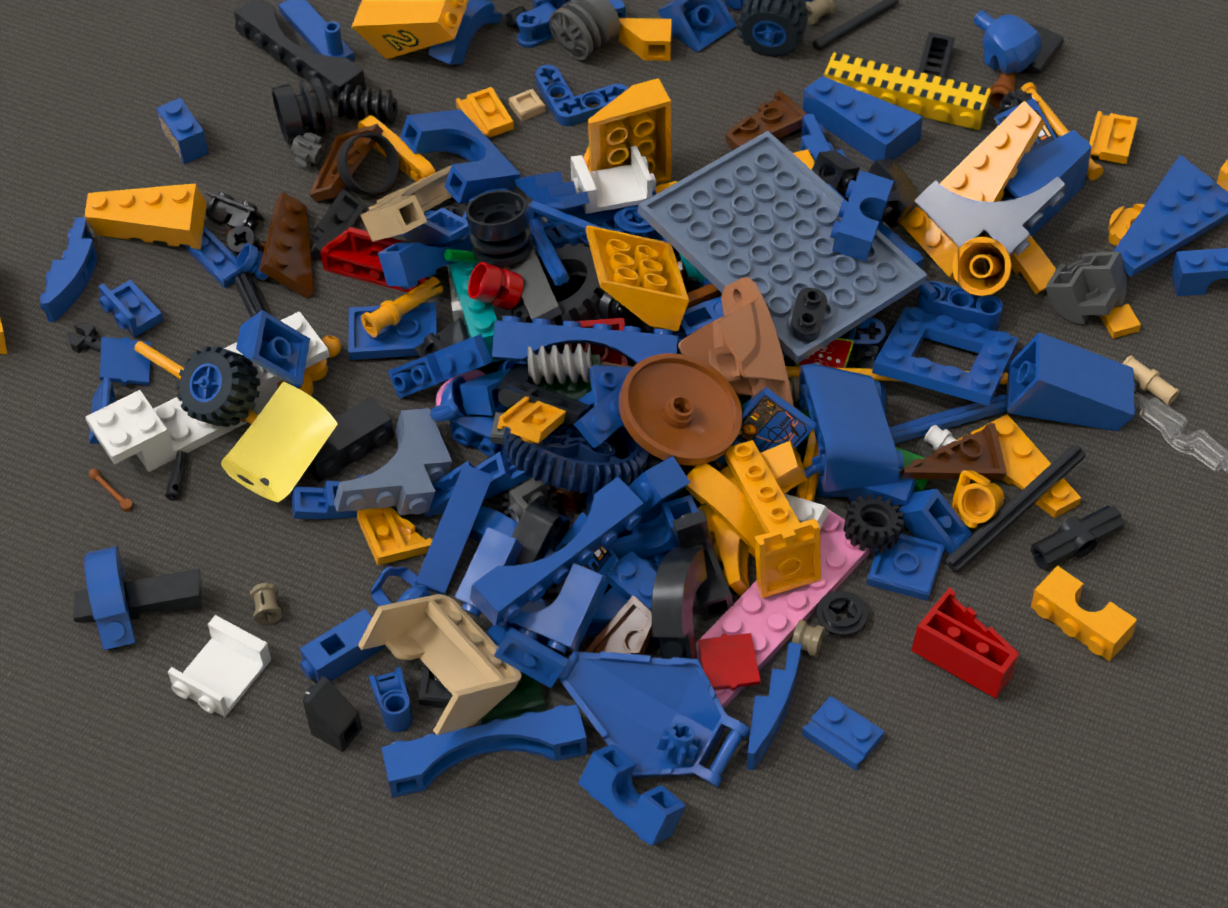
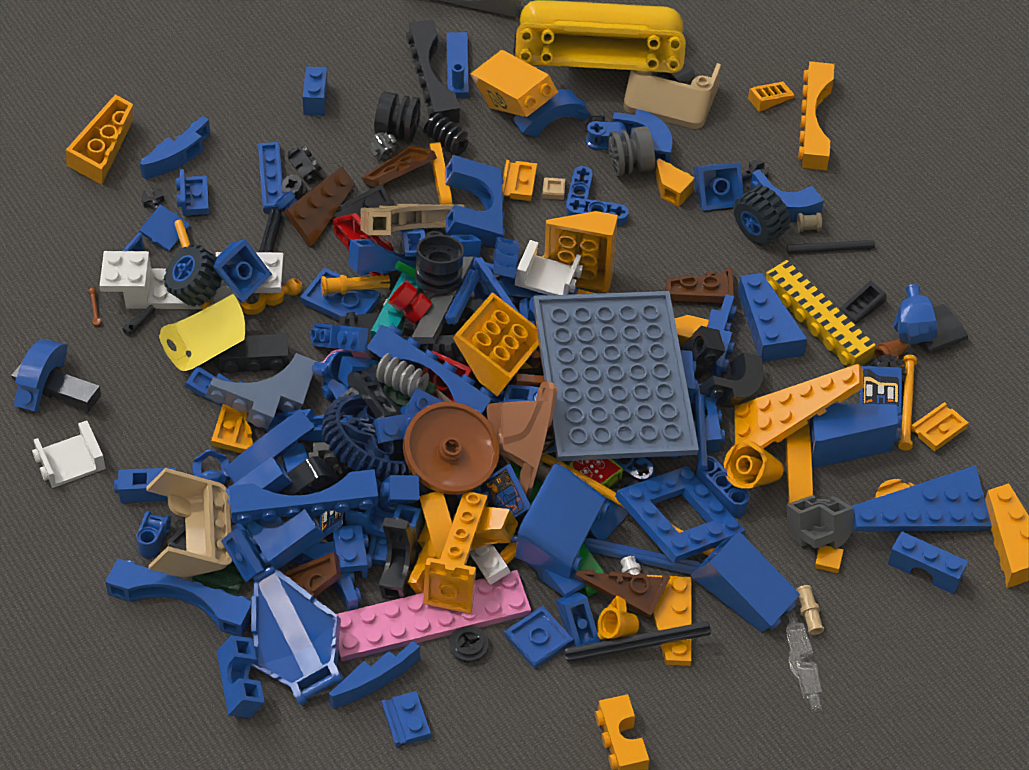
camera: 30 degrees right, 0 degrees up
(153, 213) = (250, 138): light orange wedge -> none
(266, 604) = (125, 431): dark tan bush -> none
(331, 715) = (105, 521): black slope -> none
(393, 163) = (431, 179): black tyre -> none
(532, 420) = (350, 402): light orange plate -> none
(673, 600) = (354, 568): black arch -> none
(678, 743) = (292, 662): blue gear -> none
(729, 661) = (368, 631): red piece -> none
(808, 314) = (590, 431): black plate -> none
(809, 637) = (432, 646): dark tan wheel -> none
(857, 231) = (694, 373): blue arch -> none
(870, 536) = (536, 586): black tyre -> none
(964, 646) = (523, 708): red wedge -> none
(1002, 220) = (785, 443): arch -> none
(1077, 537) = (664, 685): black piece -> none

